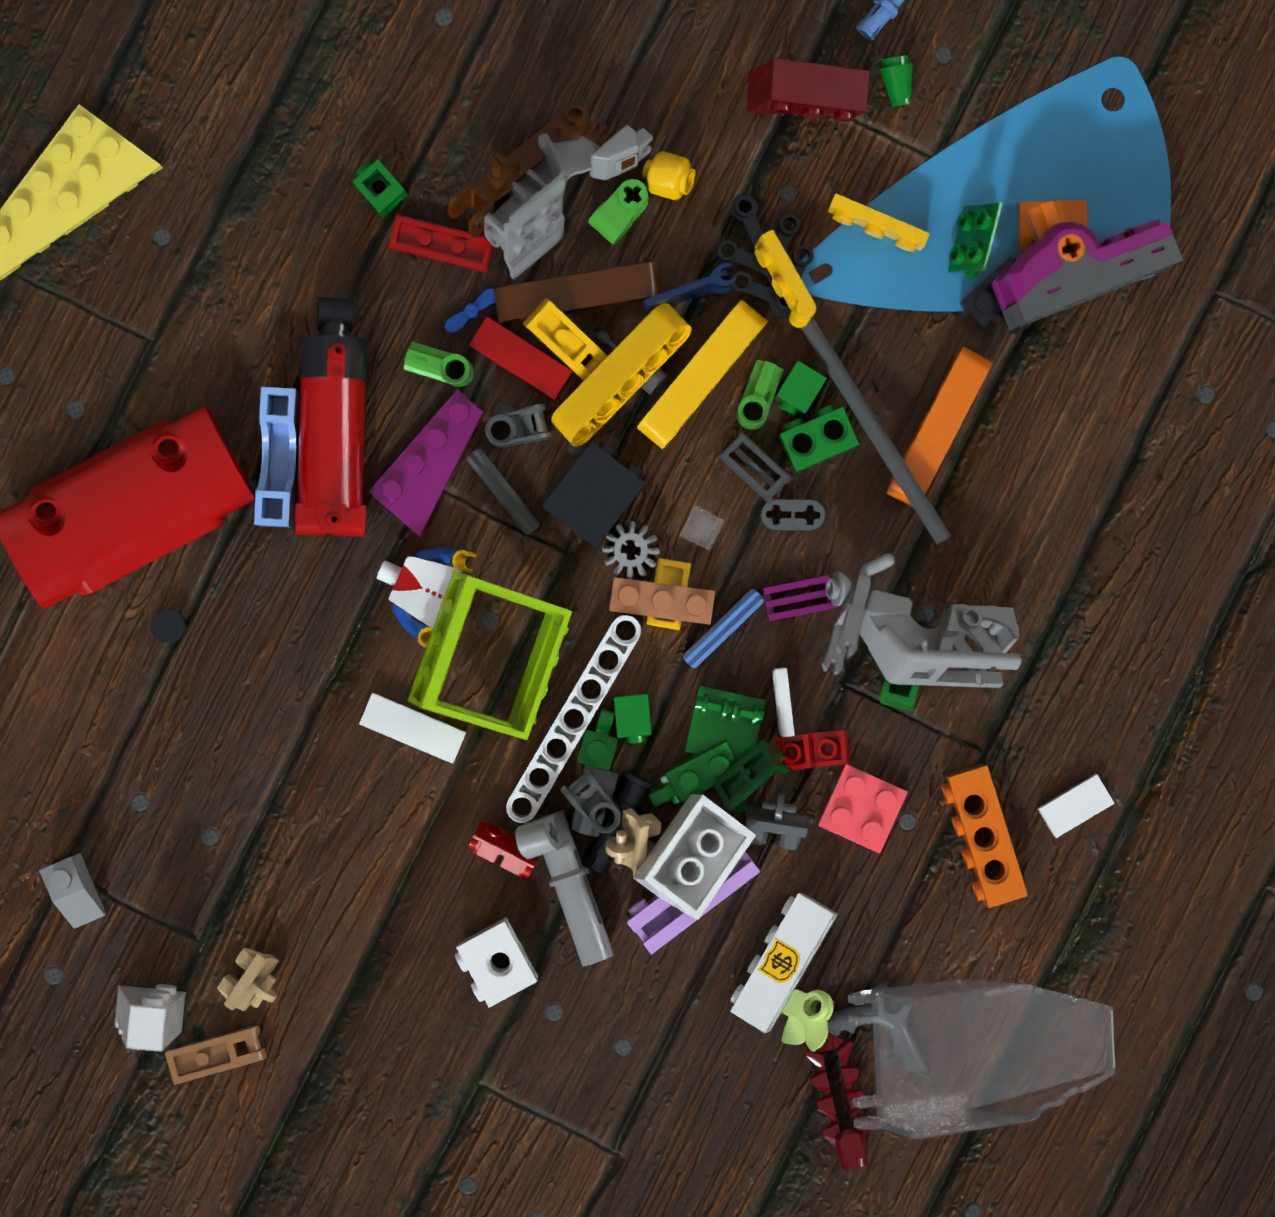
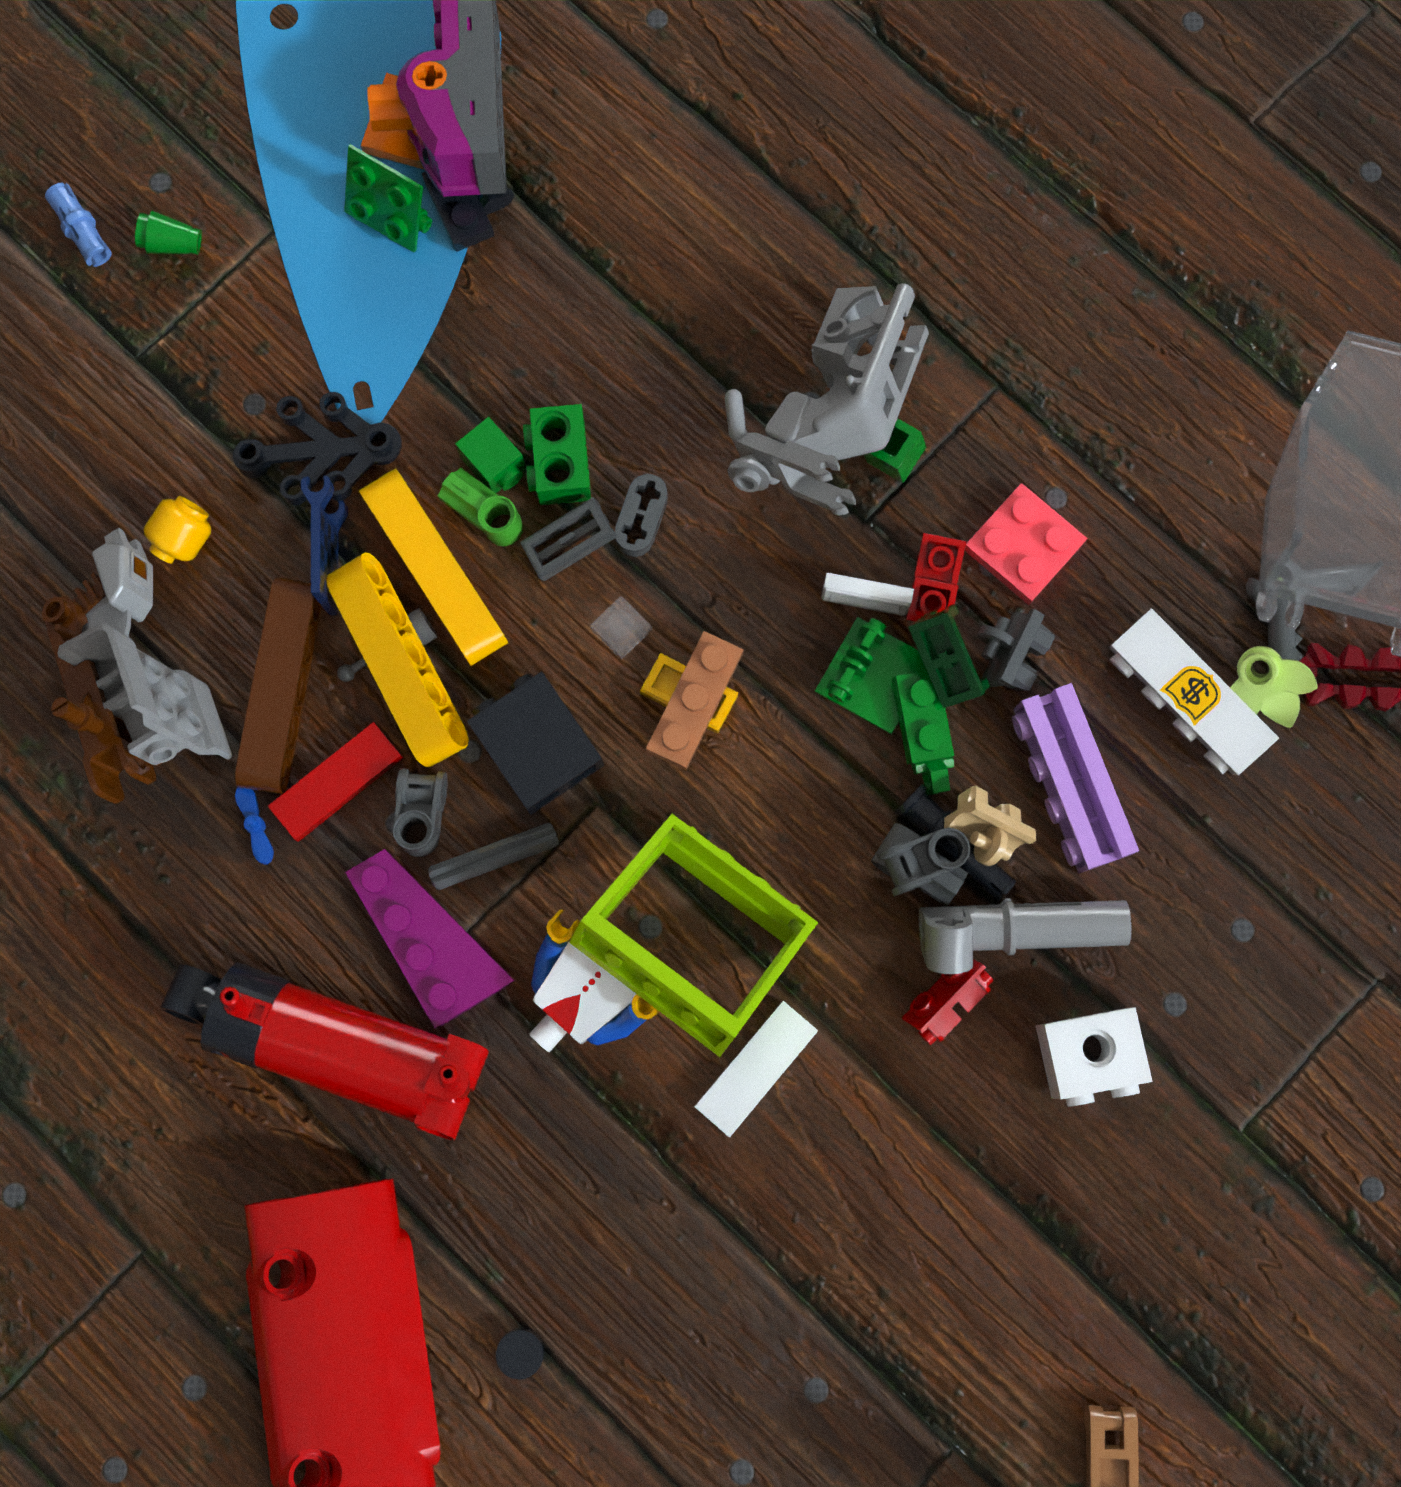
camera: 75 degrees left, 10 degrees down
(253, 984) = (1032, 1391): tan hips -> none
(280, 443) = (348, 1129): light blue arch -> none
(375, 173) = (38, 885): green brick -> none
(436, 364) = (302, 888): bright green piece -> none
(440, 243) = (157, 835): red tile -> none
(562, 731) = (830, 864): white beam -> none
(564, 339) = (328, 714): yellow plate -> none
(598, 745) = (851, 839): green plate -> none
(615, 215) = (198, 605): bright green piece -> none
(632, 717) = (829, 782): green brick -> none
(639, 543) = (612, 706): light grey gear -> none
(694, 856) = (1029, 755): white slope -> none
(723, 628) = (753, 640): medium blue axle -> none
(785, 279) = (351, 425): yellow plate -> none
(797, 598) = (748, 504): magenta tile -> none
(807, 90) = (135, 338): dark red wedge -> none
(875, 432) = (564, 383): dark grey piece -> none
(877, 223) = (325, 306): yellow plate -> none
(943, 419) = (593, 313): orange beam -> none
(1008, 883) = (1164, 396): orange brick -> none
(1075, 805) = (1094, 299): white tile -> none

